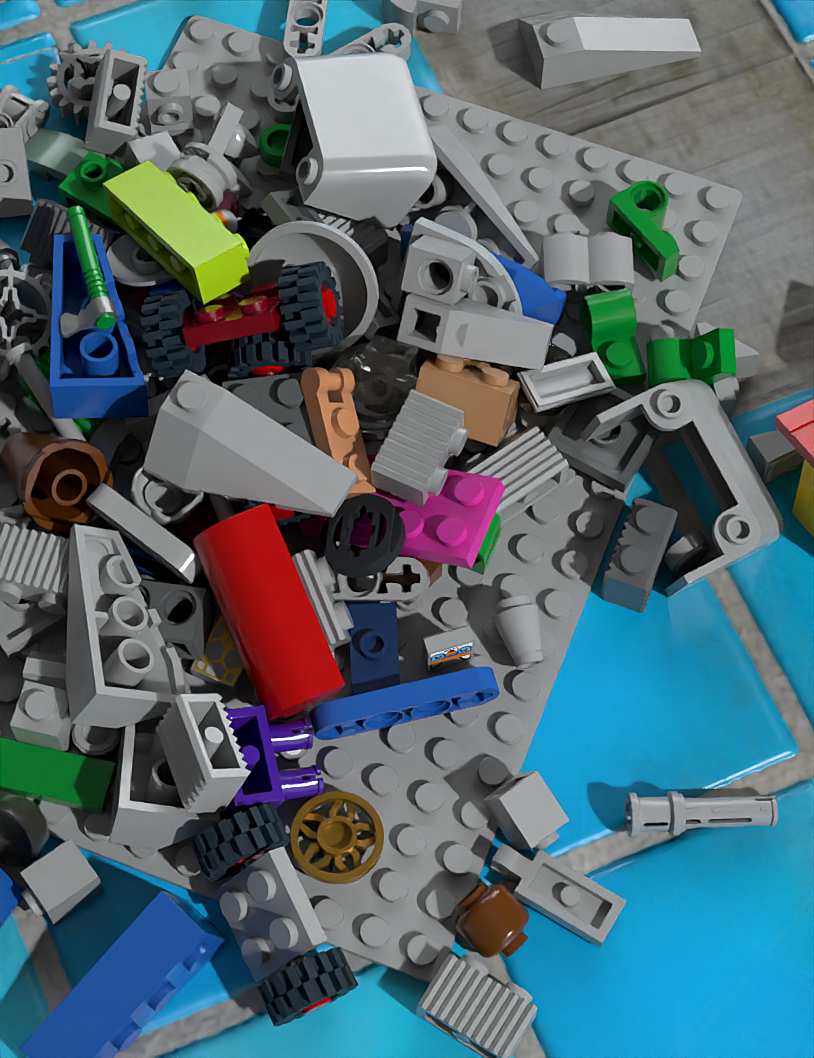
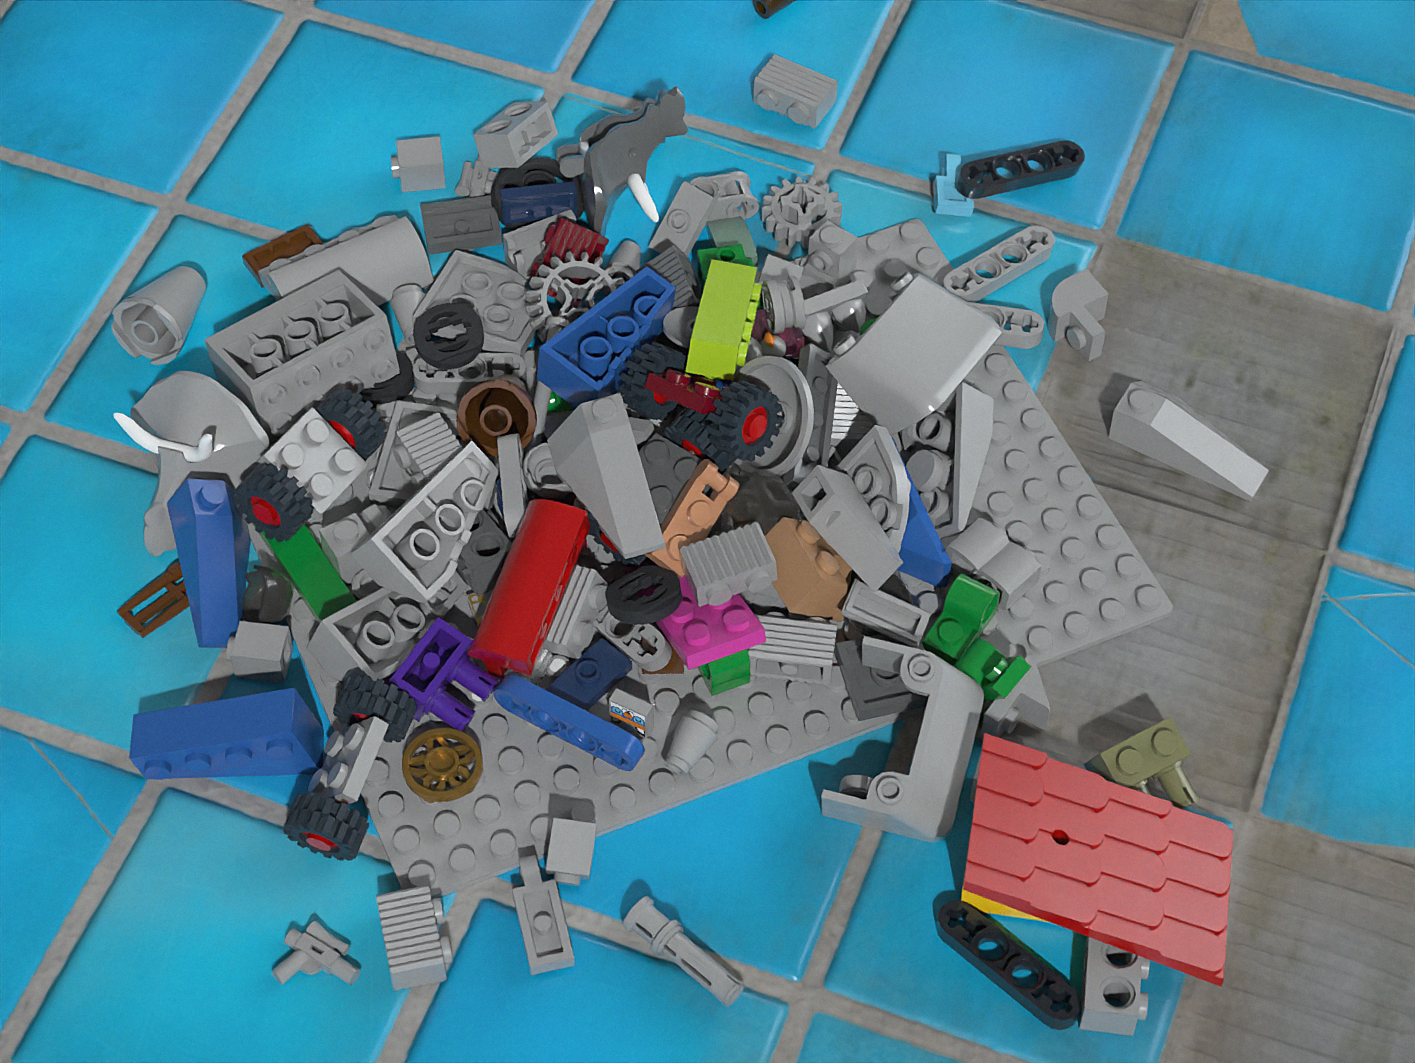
camera: 45 degrees right, 10 degrees down
(101, 310) = (620, 326): green piece -> none
(116, 102) = (787, 225): light grey brick -> none
(202, 752) = (400, 630): light grey brick -> none
(422, 275) = (858, 466): light grey brick -> none
(492, 920) = (480, 894): reddish brown head -> none
(638, 554) = (822, 764): dark grey brick -> none
(649, 243) = (1065, 569): green plate -> none

